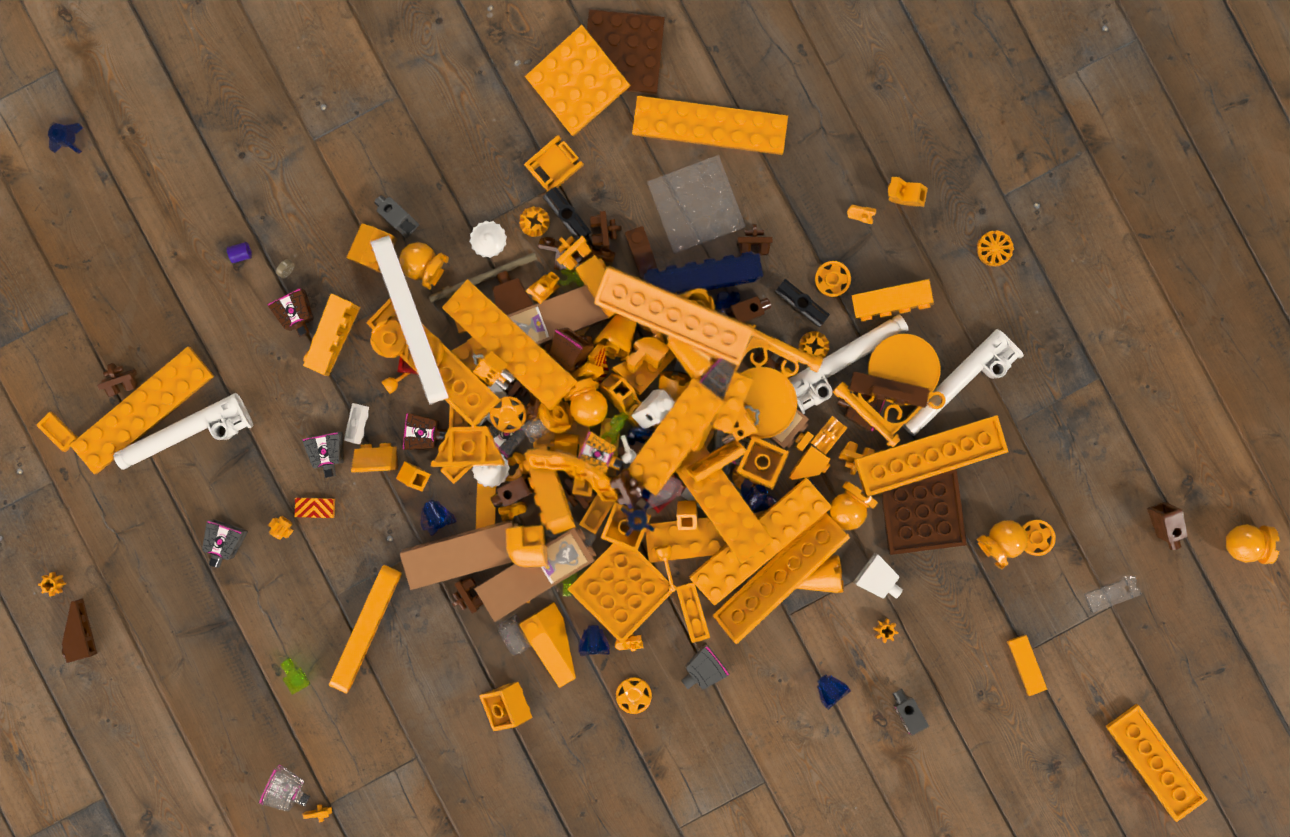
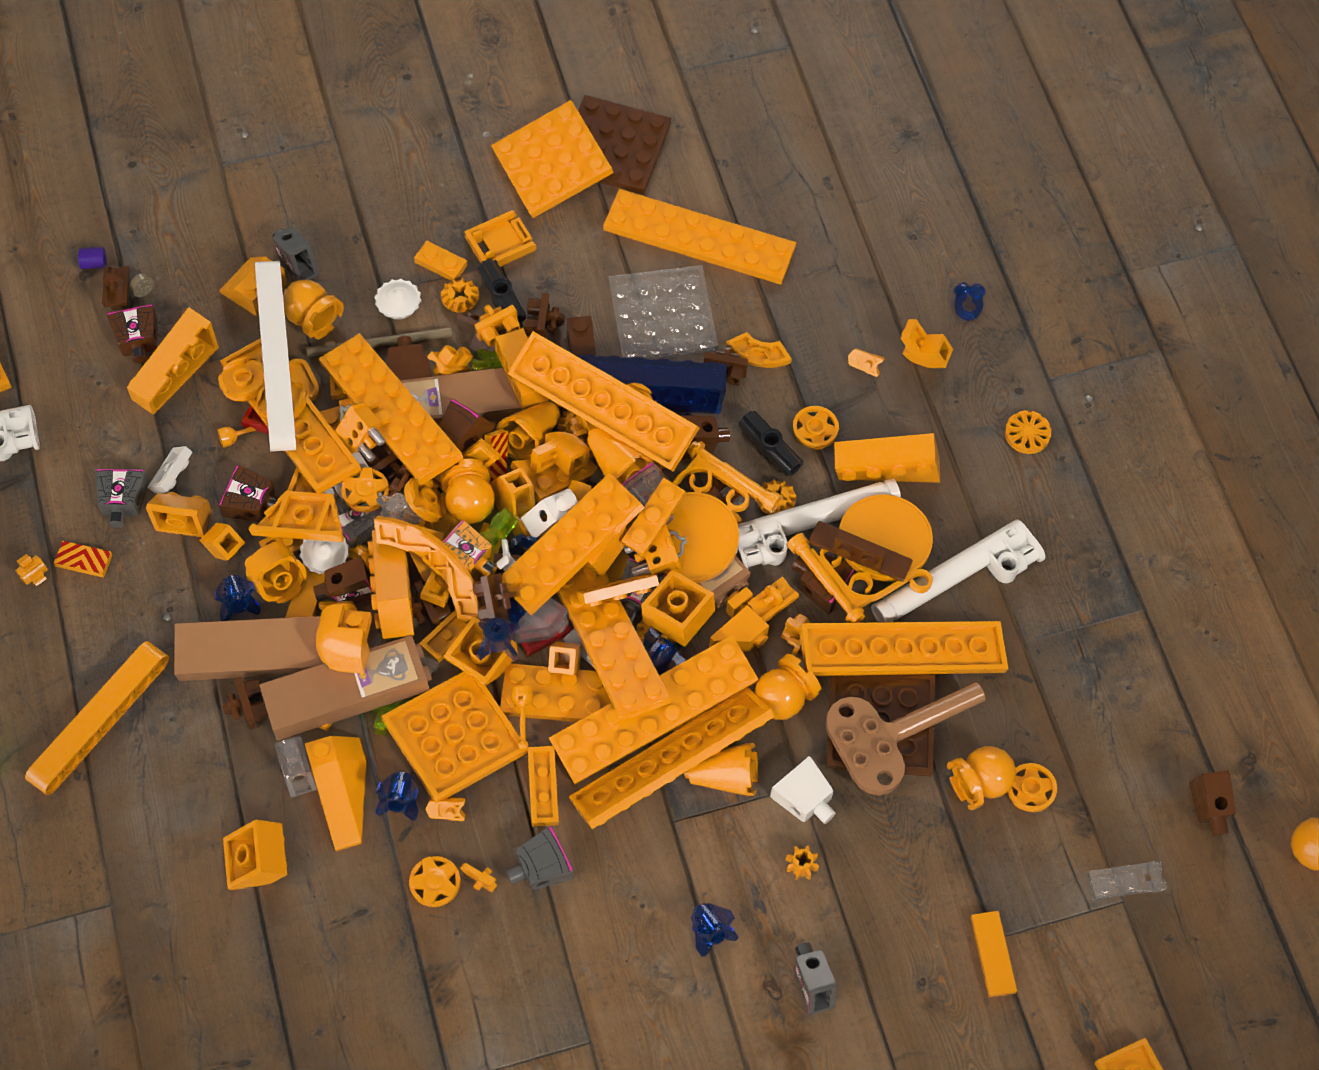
camera: 10 degrees right, 25 degrees down
(266, 276) = (116, 287): none -> reddish brown hips
(433, 322) = (301, 371): none -> light orange tile
(460, 495) = (275, 573): none -> light orange brick
(511, 193) = (440, 261): none -> light orange plate
(667, 689) = (483, 878): none -> light orange piece
(776, 222) = (759, 353): none -> light orange tile
(920, 536) = (870, 744): none -> medium nougat piece
(938, 131) = (977, 292): none -> clear blue piece

